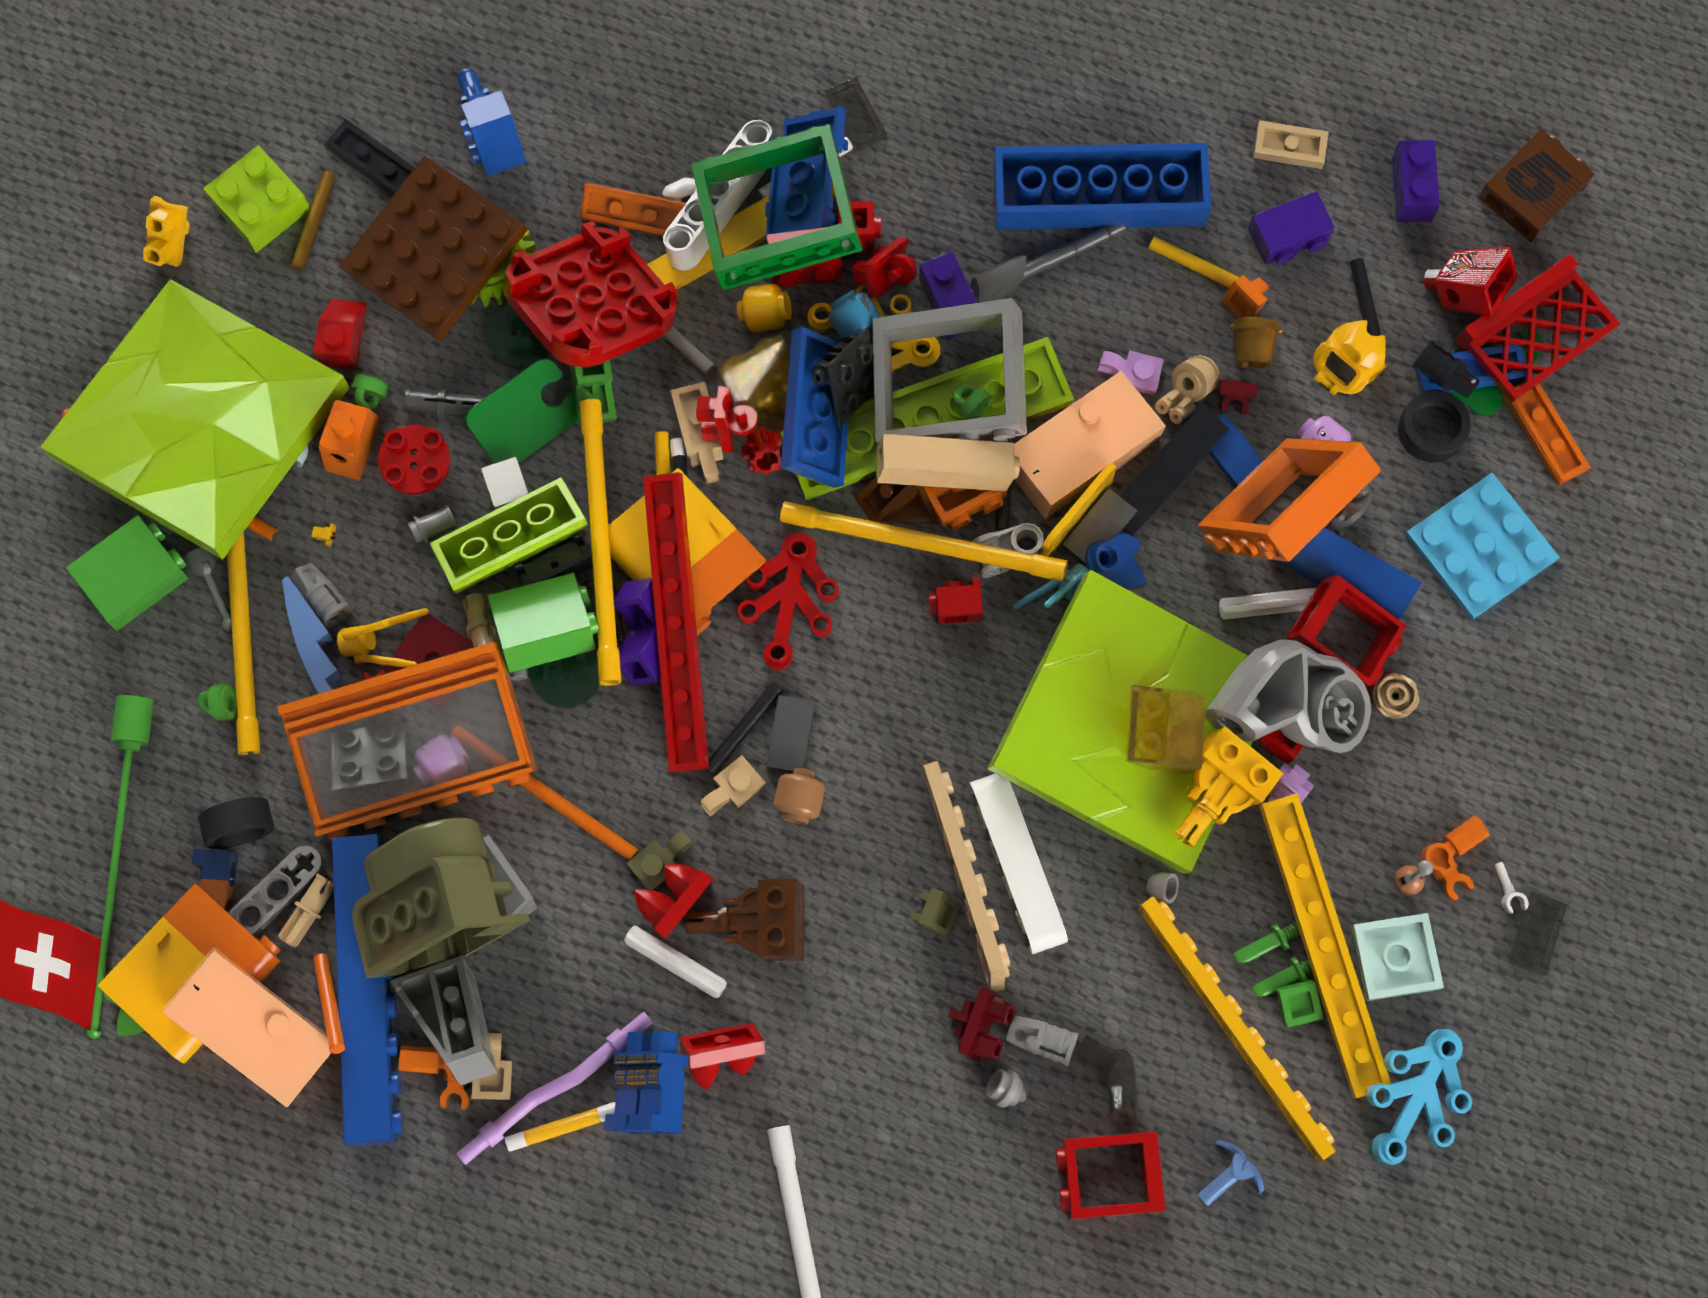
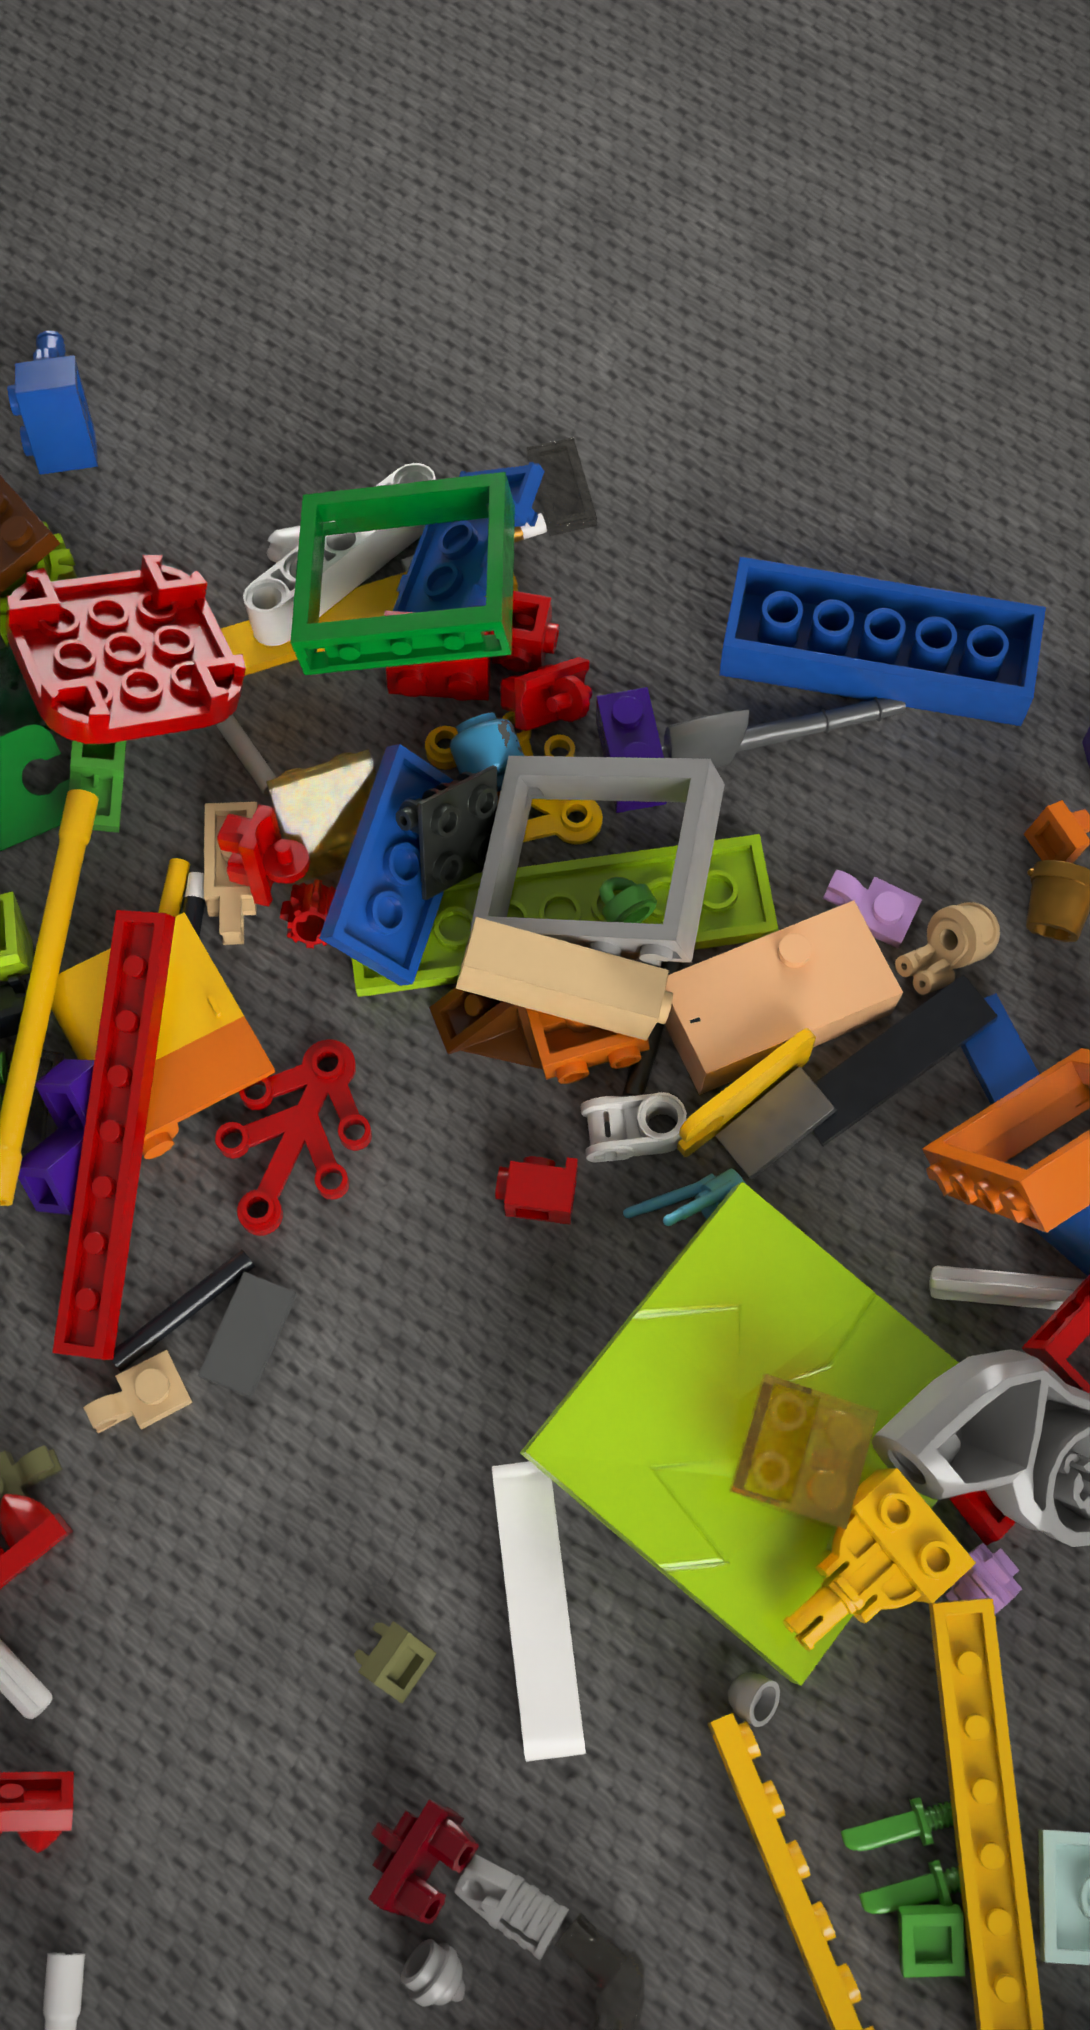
camera: 15 degrees right, 5 degrees down
(628, 209) = (211, 548): orange tile -> none
(764, 308) = (367, 717): yellow head -> none
(765, 922) = (132, 1617): reddish brown brick -> none
(799, 796) = (231, 1432): medium nougat head -> none
(992, 956) = (453, 1632): tan wing -> none
(1034, 564) = (660, 1155): yellow piece -> none
(1117, 560) = (791, 1180): blue plate -> none
(1192, 262) = (991, 771): yellow bar -> none
(1236, 390) = (1021, 965): dark red tile -> none

